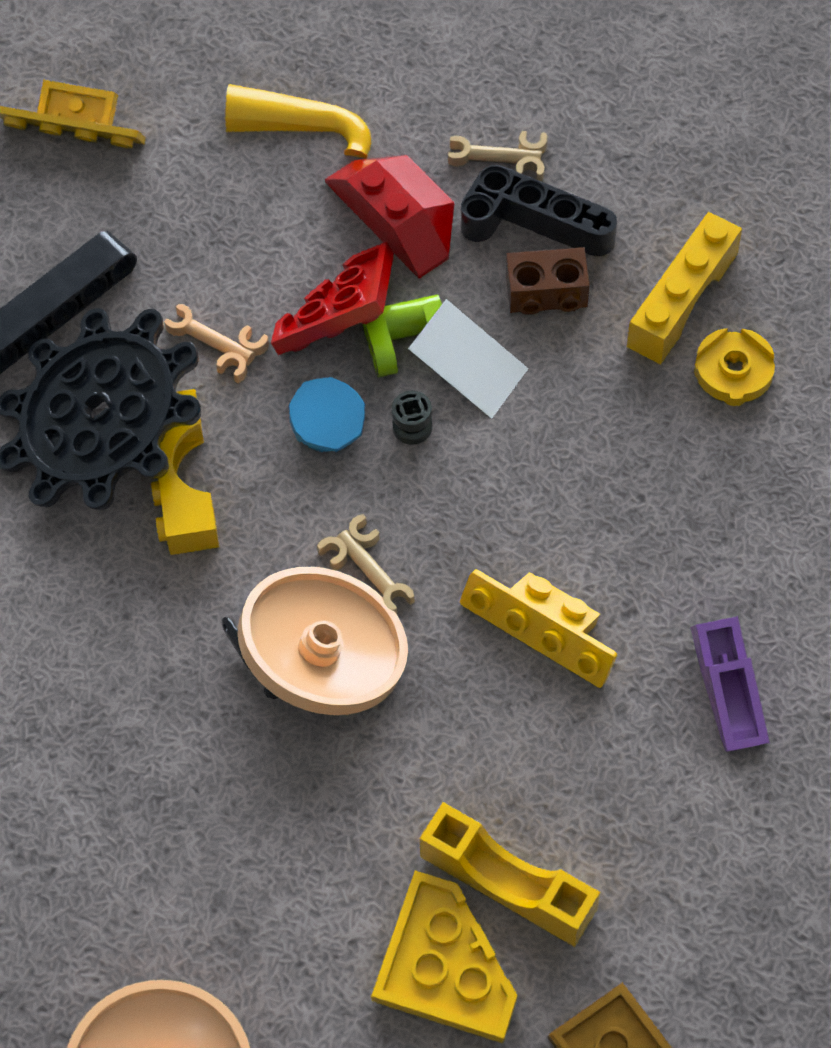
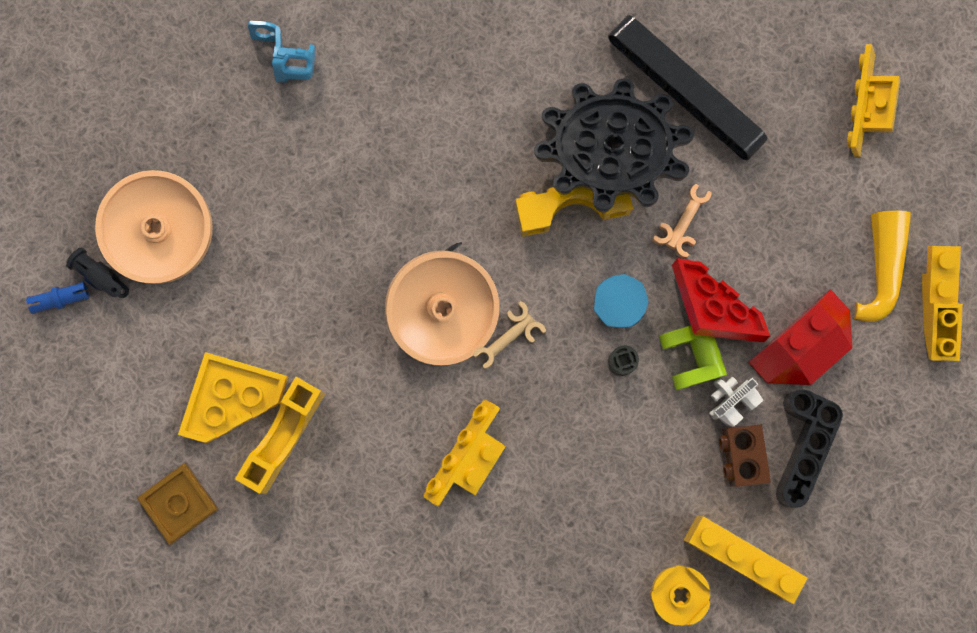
camera: 85 degrees right, 20 degrees up
(365, 61) = (940, 303): none -> yellow slope
(468, 294) = (745, 393): none -> white hips
(468, 358) = (673, 399): white sticker -> none
(526, 157) = (862, 439): tan bar -> none
(730, 683) = (425, 584): medium lavender slope -> none

